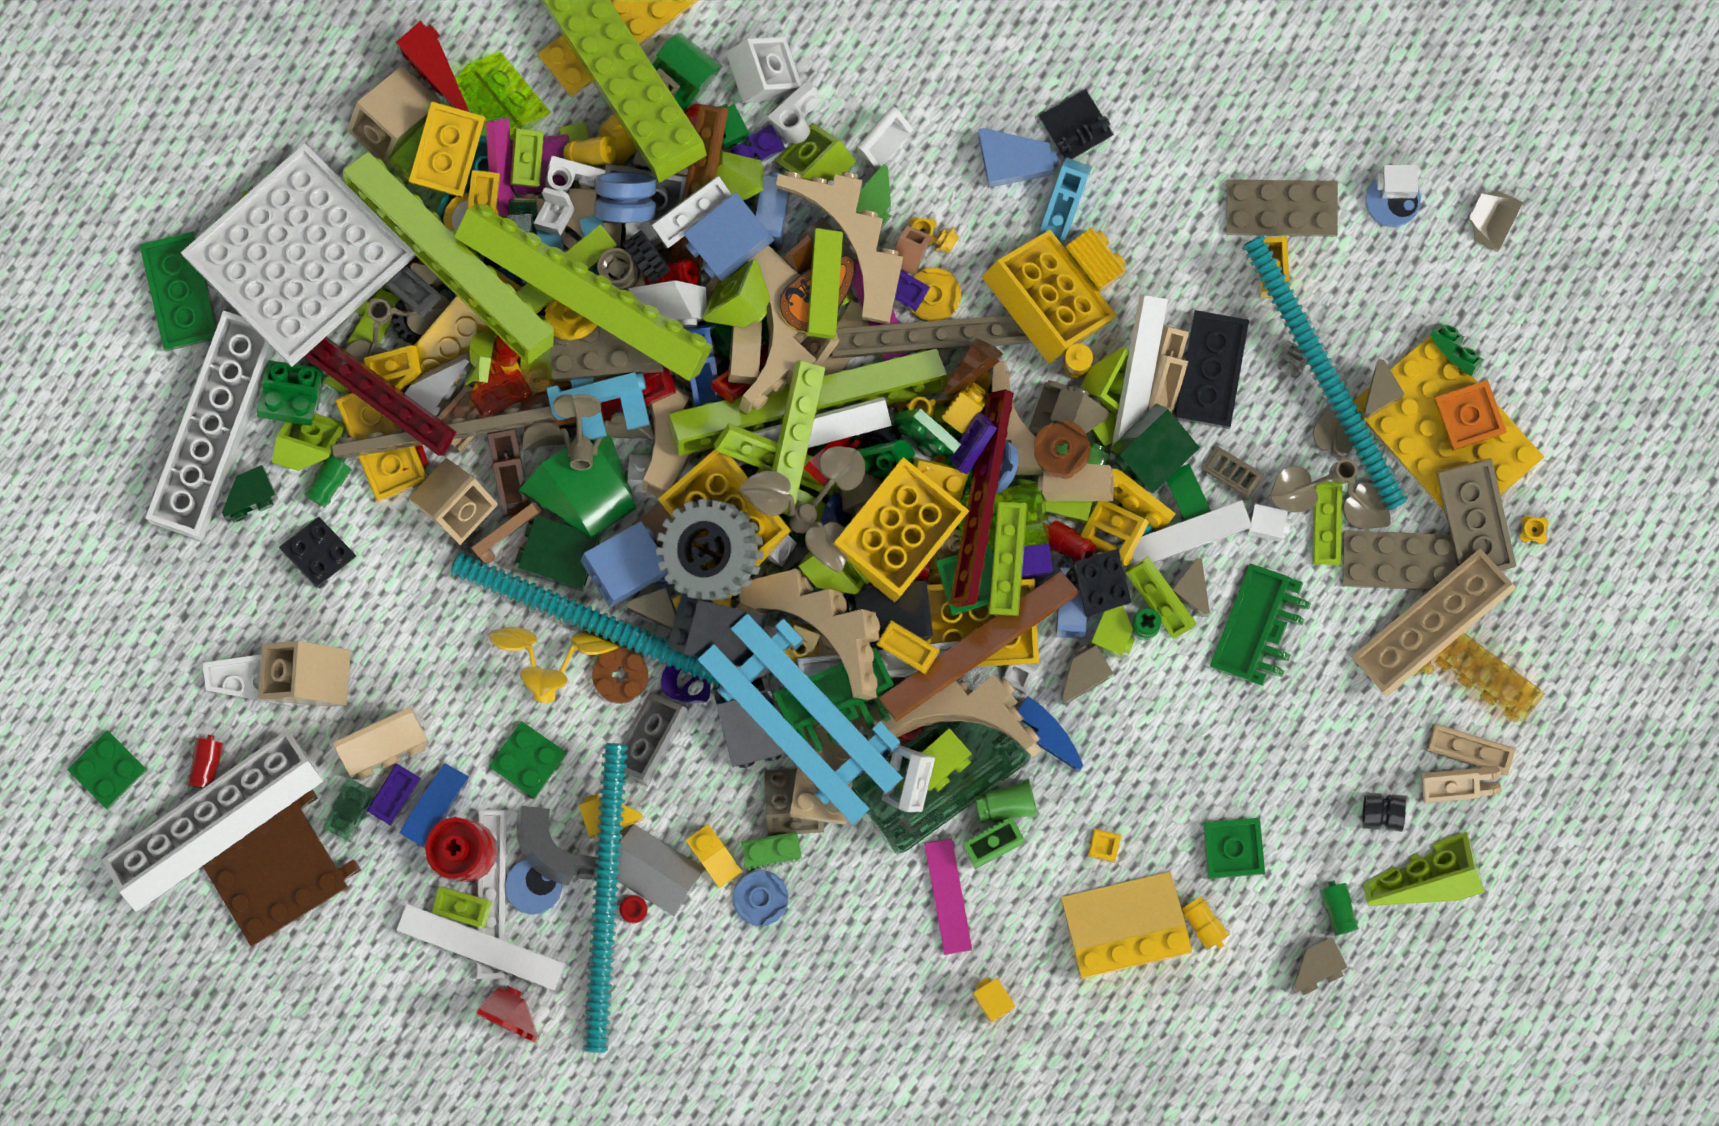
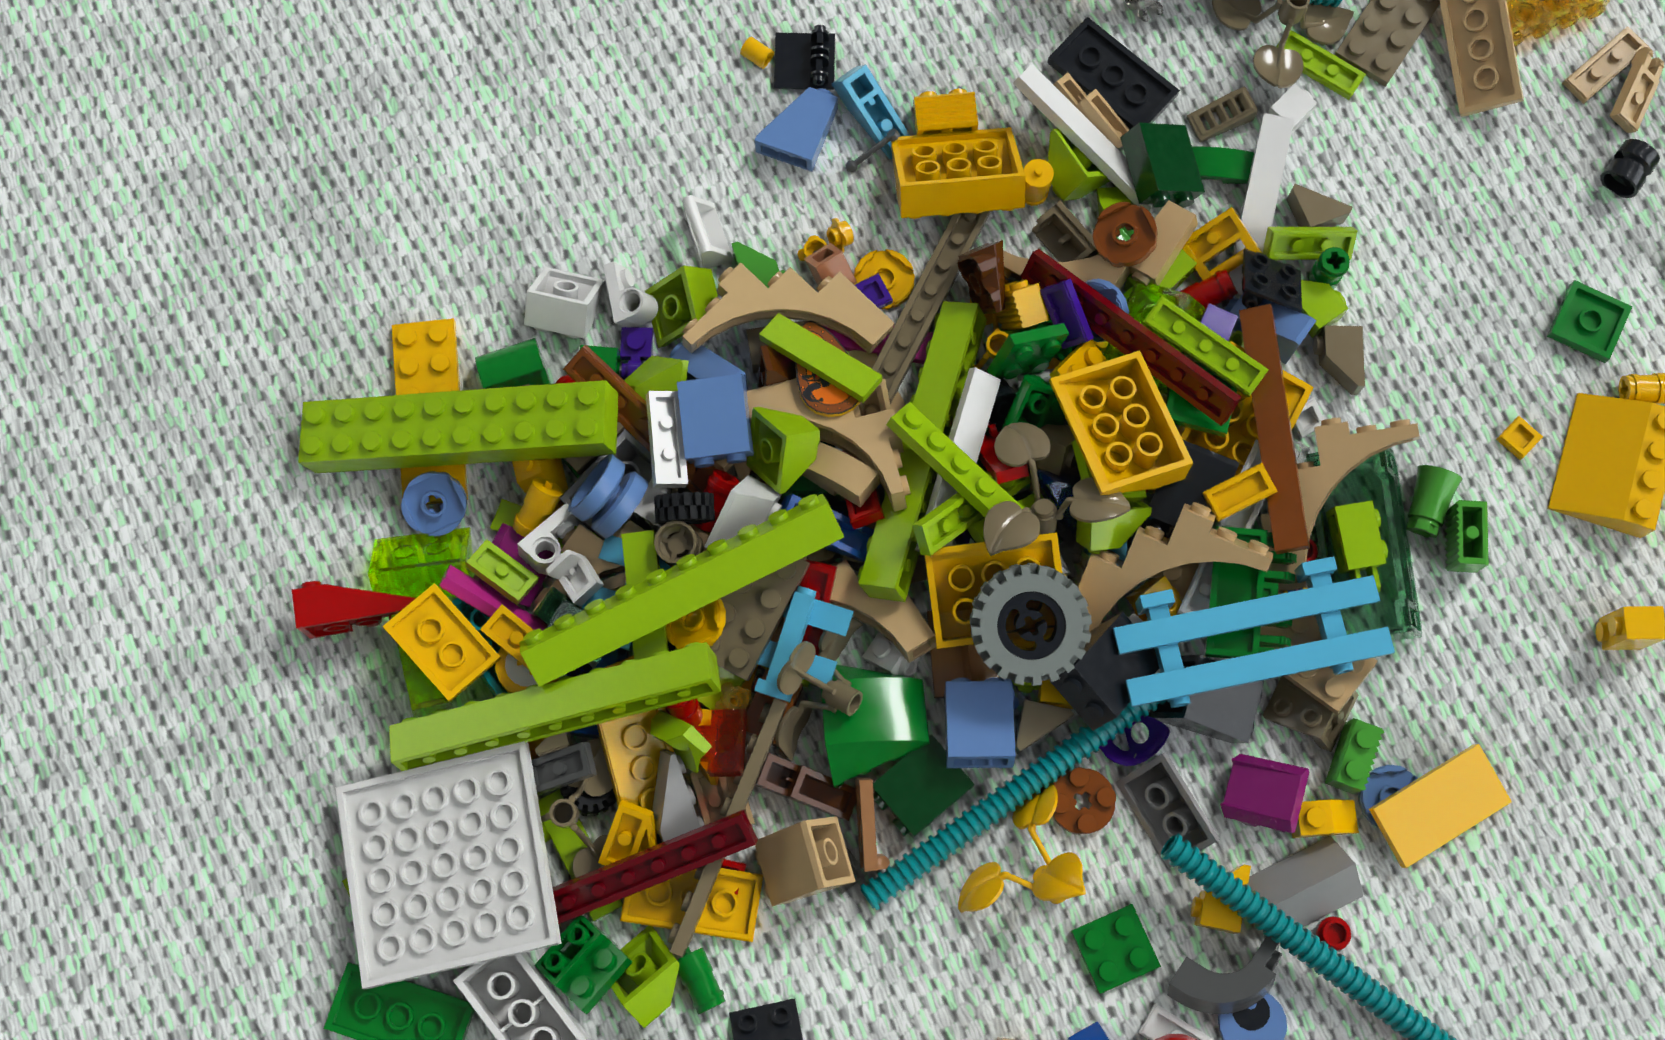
camera: 60 degrees left, 5 degrees down
(391, 113) = (366, 682): tan slope -> none
(535, 80) = (427, 520): none -> medium blue plate
(702, 798) = (1265, 793): none -> magenta slope
(774, 933) = (1440, 805): none -> yellow tile
(916, 780) = (1375, 566): white tile -> none
(948, 896) = (1491, 613): dark pink tile -> none
(1049, 230) = (892, 135): none -> dark grey hinge
(1051, 734) = (1384, 414): blue slope -> none
(1059, 85) = (756, 52): none -> yellow hinge
(1079, 408) = (1084, 205): dark tan slope -> none
(1140, 501) = (1213, 203): yellow plate -> none
(1255, 623) = (1382, 179): green hinge -> none

